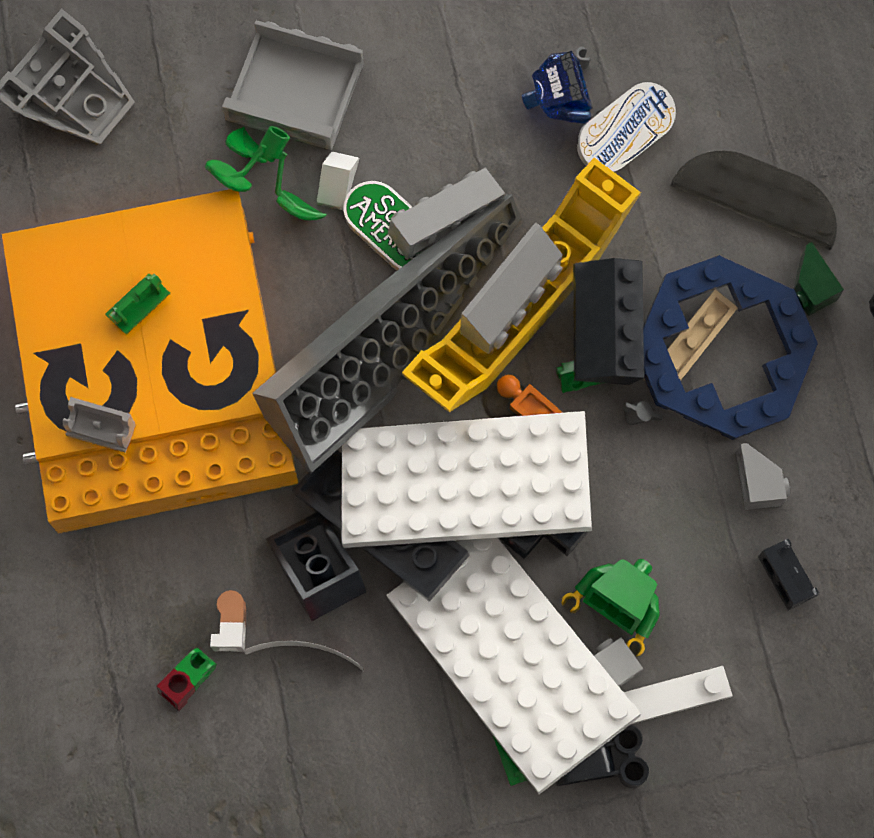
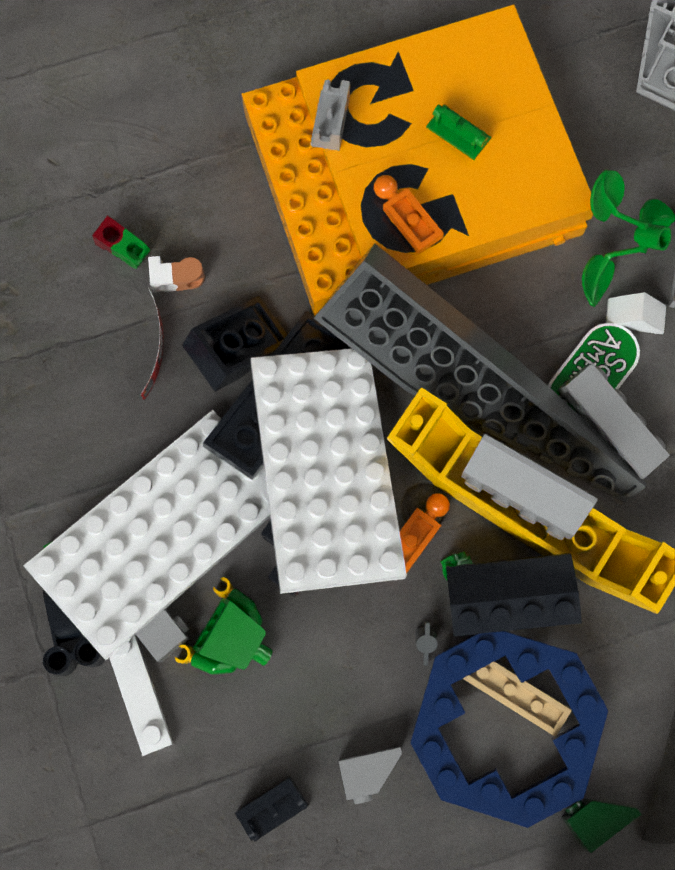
camera: 85 degrees right, 5 degrees up
(220, 362) = (407, 214): none -> orange plate

